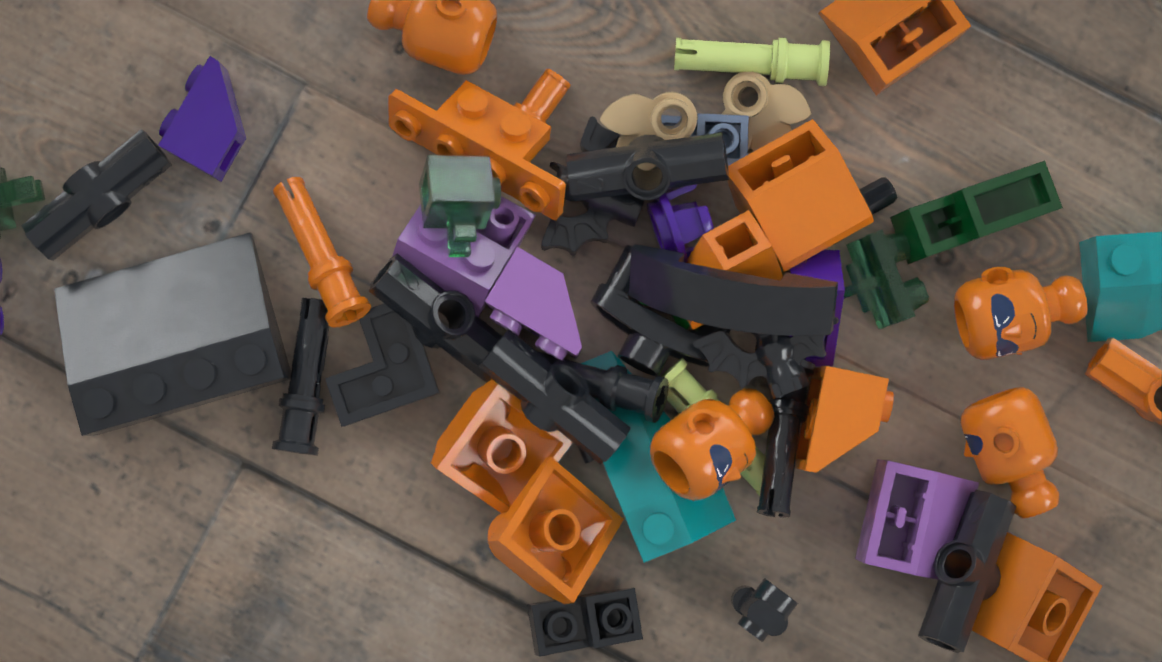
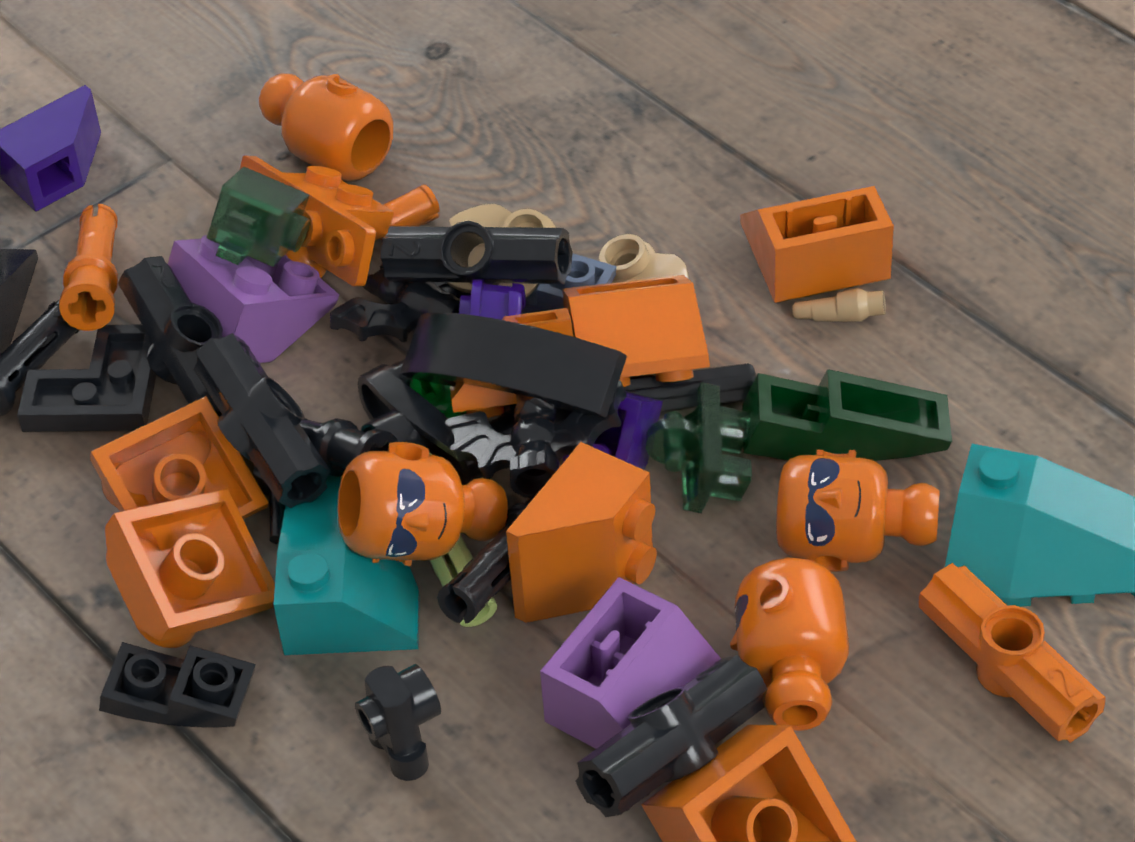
camera: 30 degrees right, 40 degrees down
(536, 299) = (292, 335): medium lavender slope -> none
(778, 60) = (694, 244): yellowish green pin -> none
(935, 82) = (846, 306): none -> tan piece

